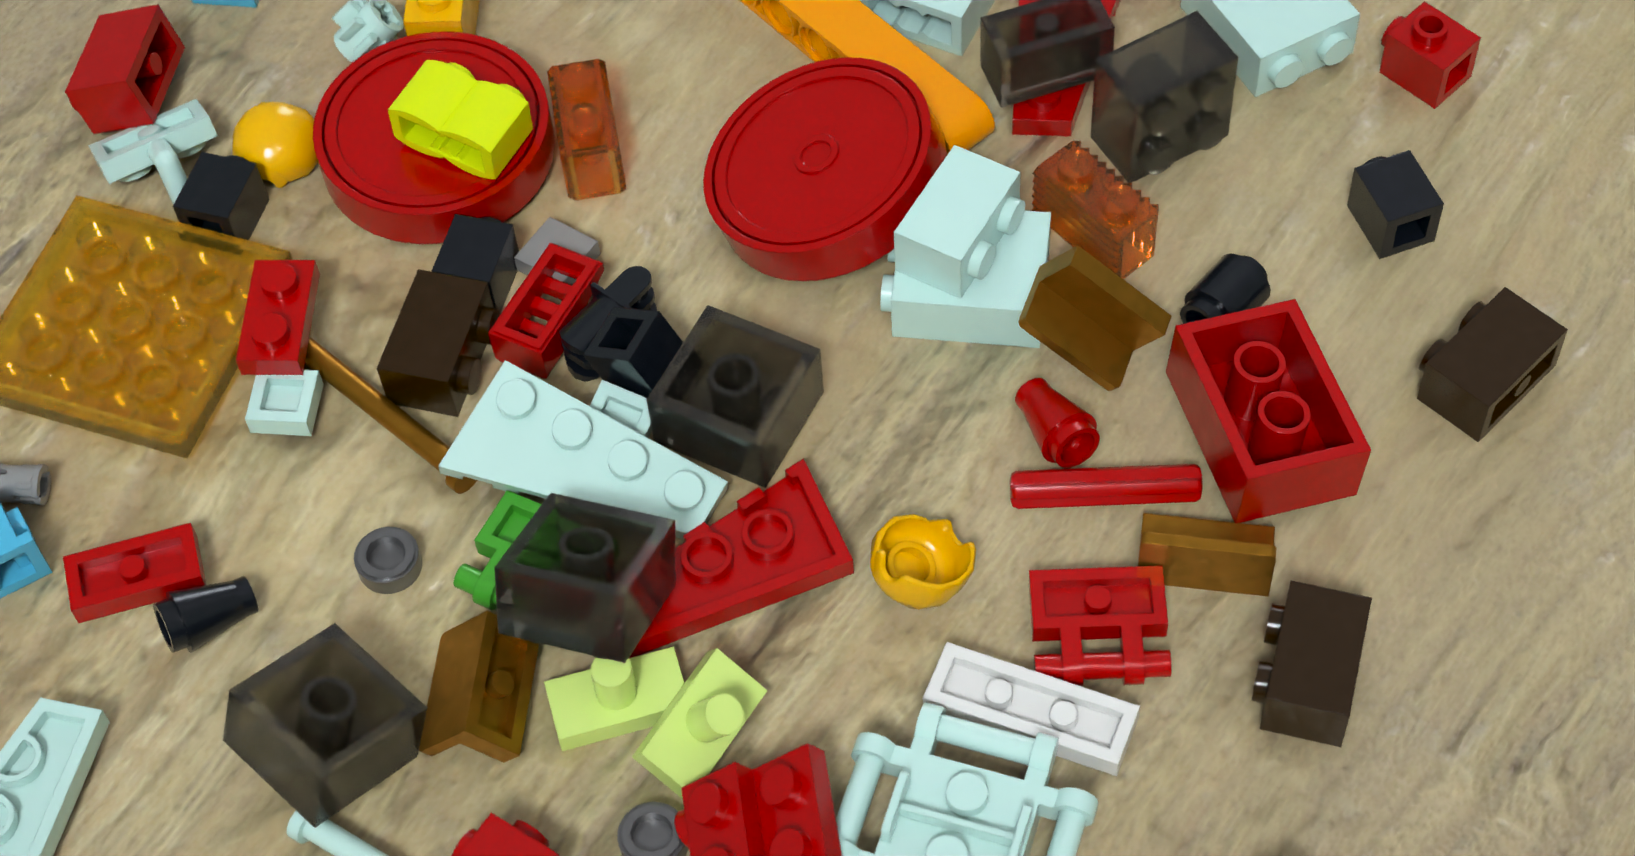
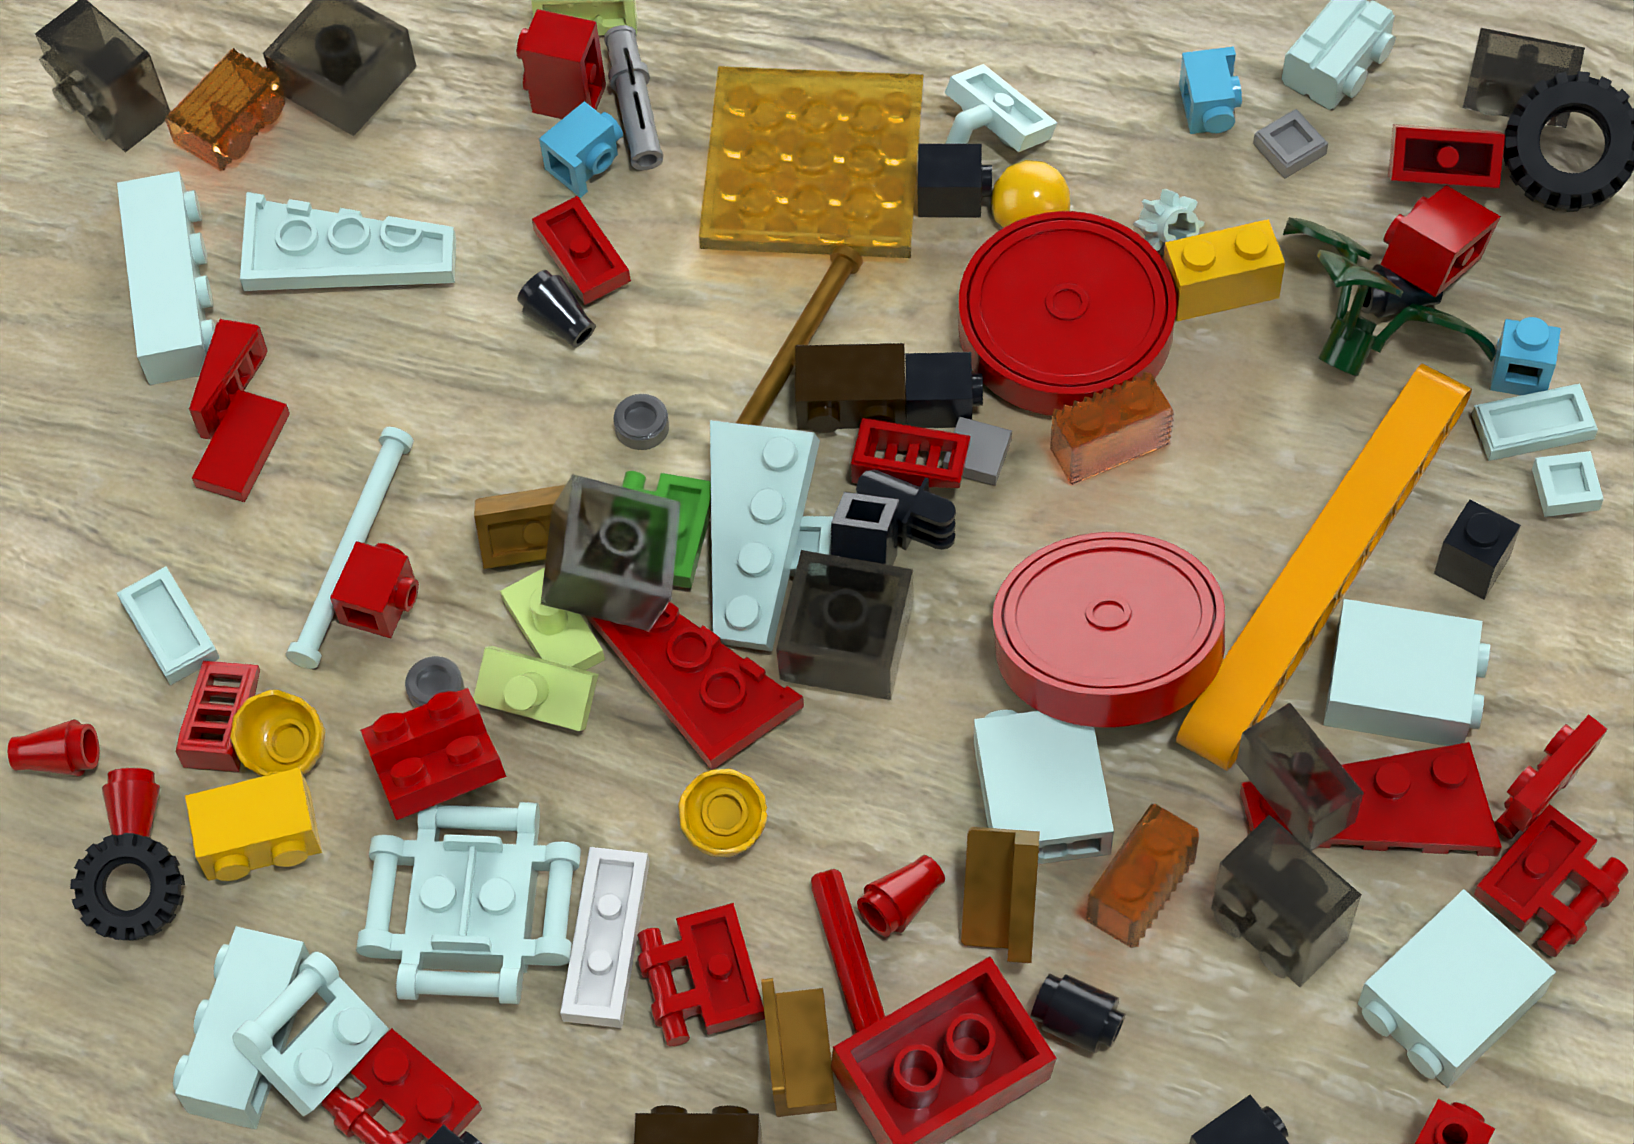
camera: 75 degrees right, 5 degrees up
(125, 69) = (1061, 58): red brick -> none
(278, 317) = (834, 259): red plate -> none
(284, 403) = (765, 296): light aqua plate -> none
(324, 724) = (459, 418): clear smoke brick -> none
(461, 118) = (1058, 319): neon yellow brick -> none
(958, 222) = (1058, 747): light aqua brick -> none

